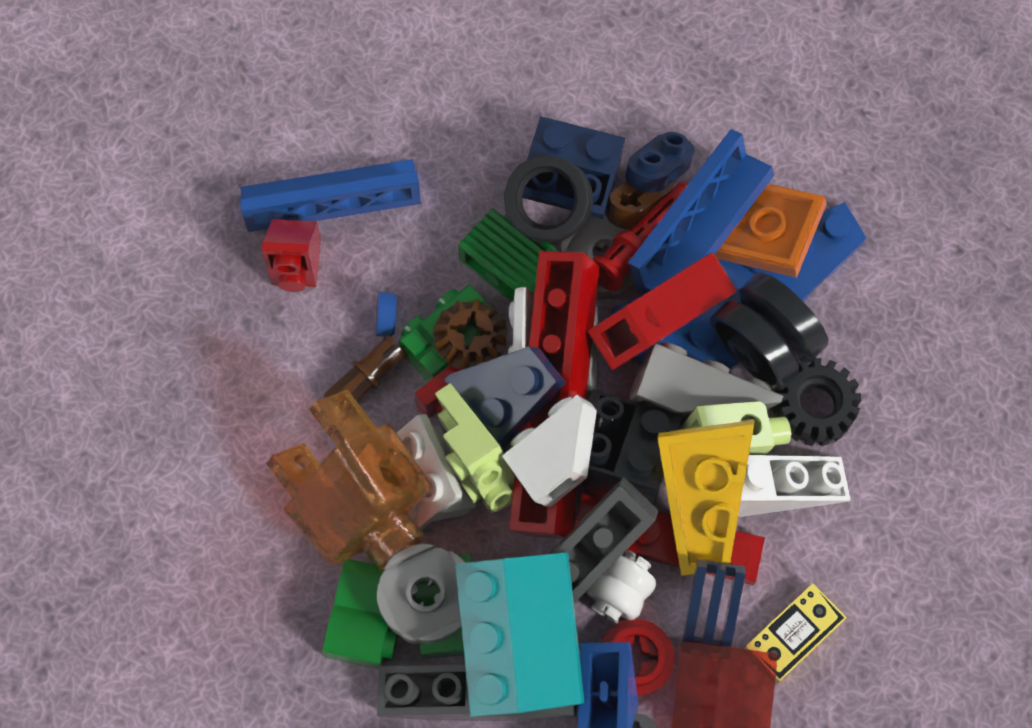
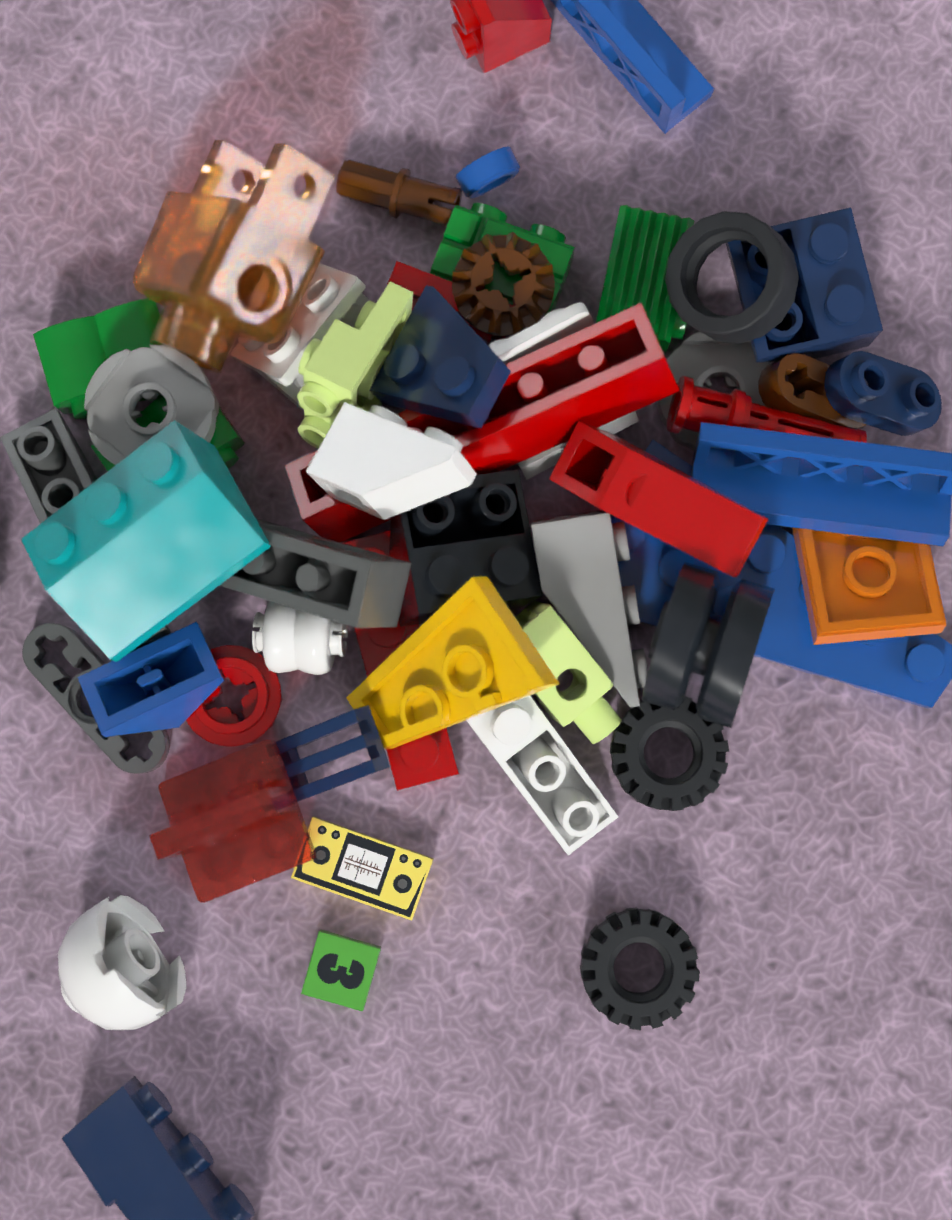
camera: 70 degrees right, 15 degrees up
(857, 683) = (341, 970): none -> bright green tile
(964, 473) = (644, 1007): none -> black tyre

